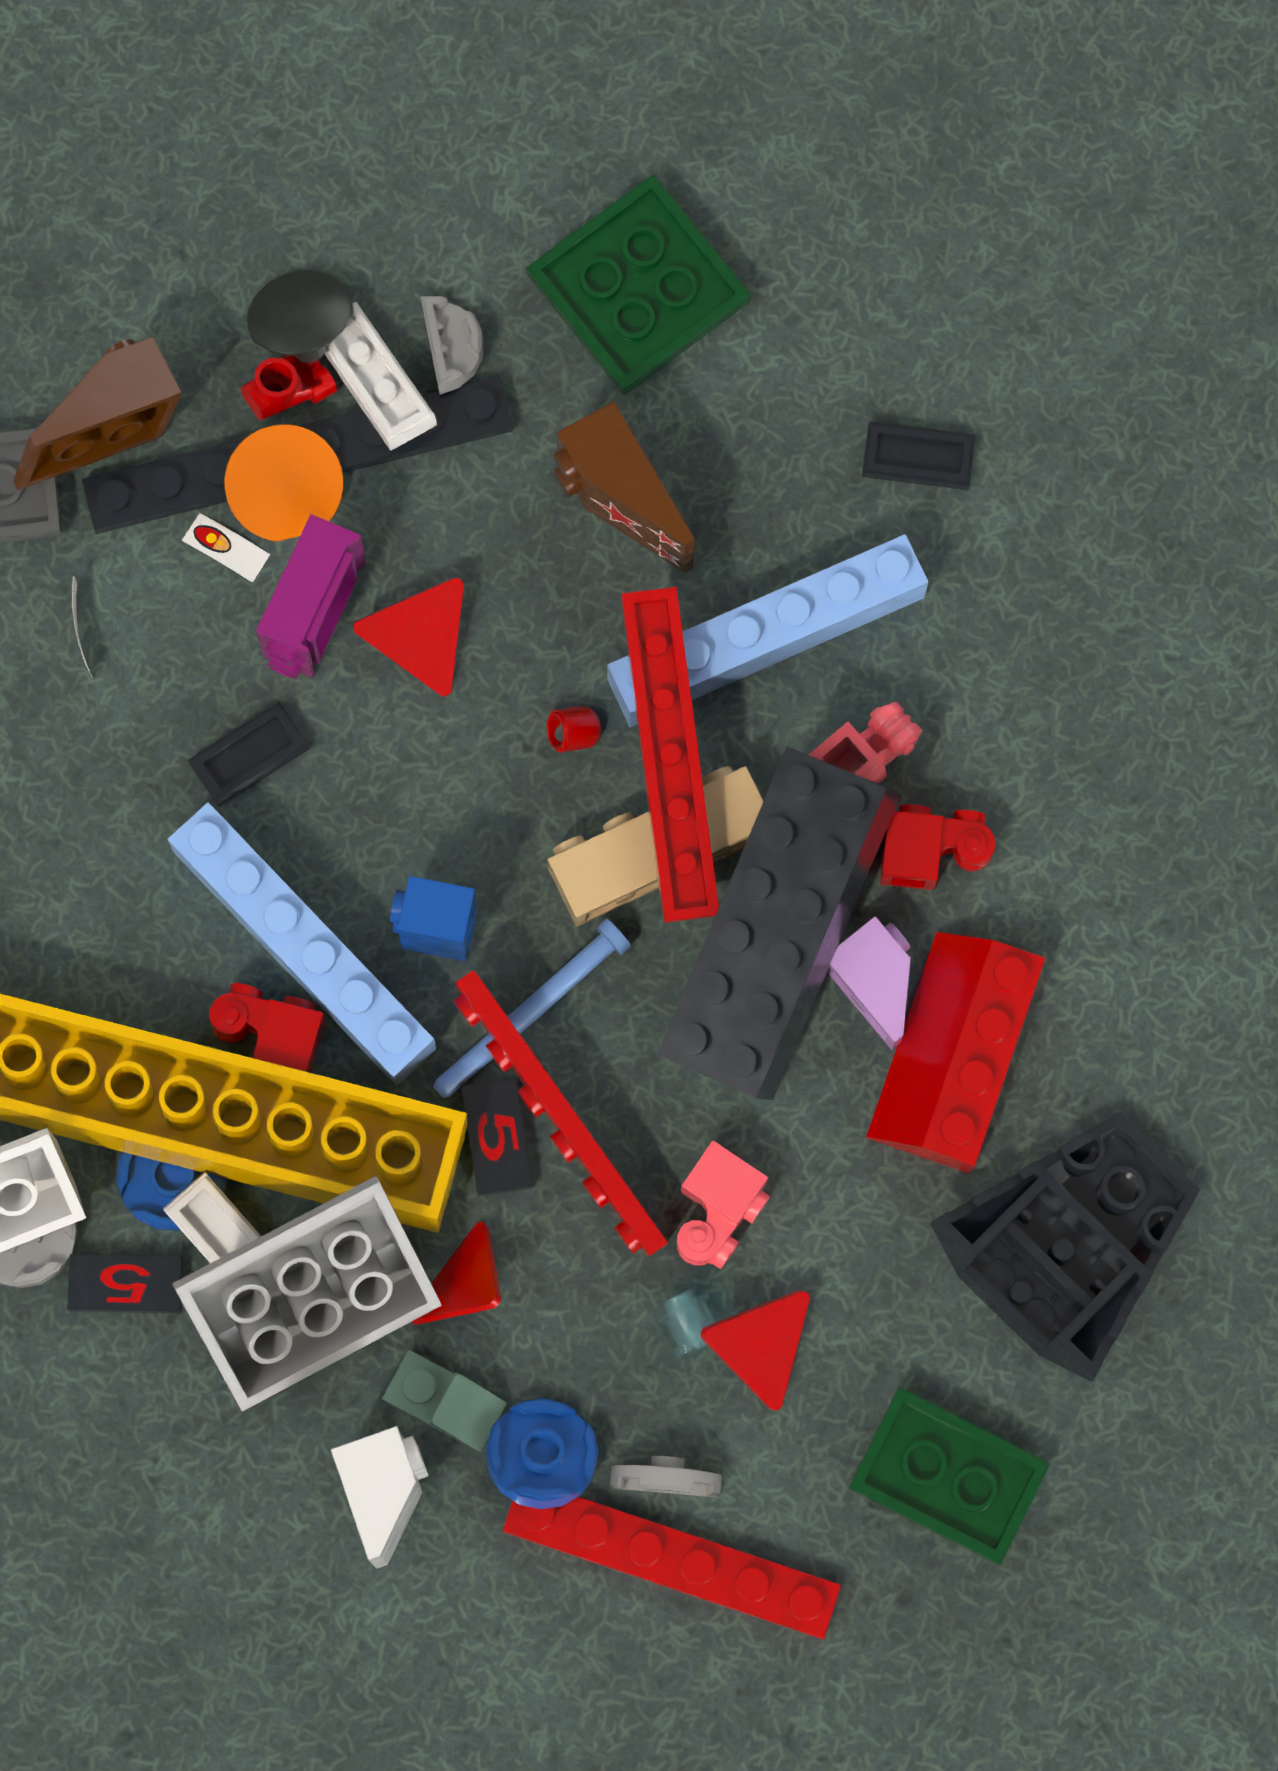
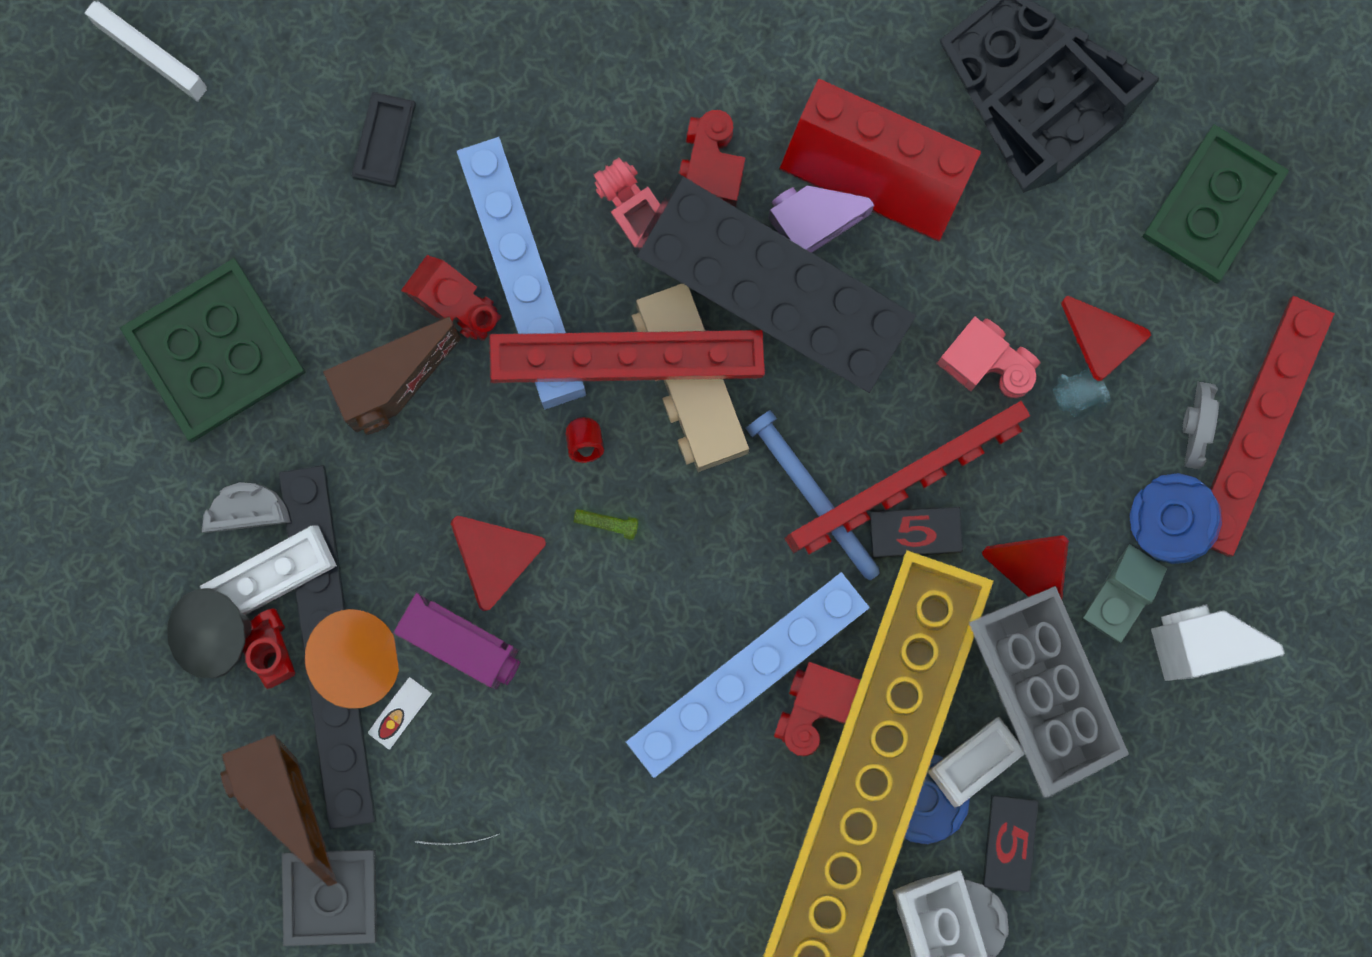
camera: 85 degrees left, 5 degrees up
(248, 754) = (579, 707): black tile -> none
(435, 918) = (740, 562): blue brick -> none
(471, 789) = (626, 527): none -> clear neon green piece
(728, 547) = (448, 293): none -> red brick
(993, 167) = (146, 50): none -> white tile

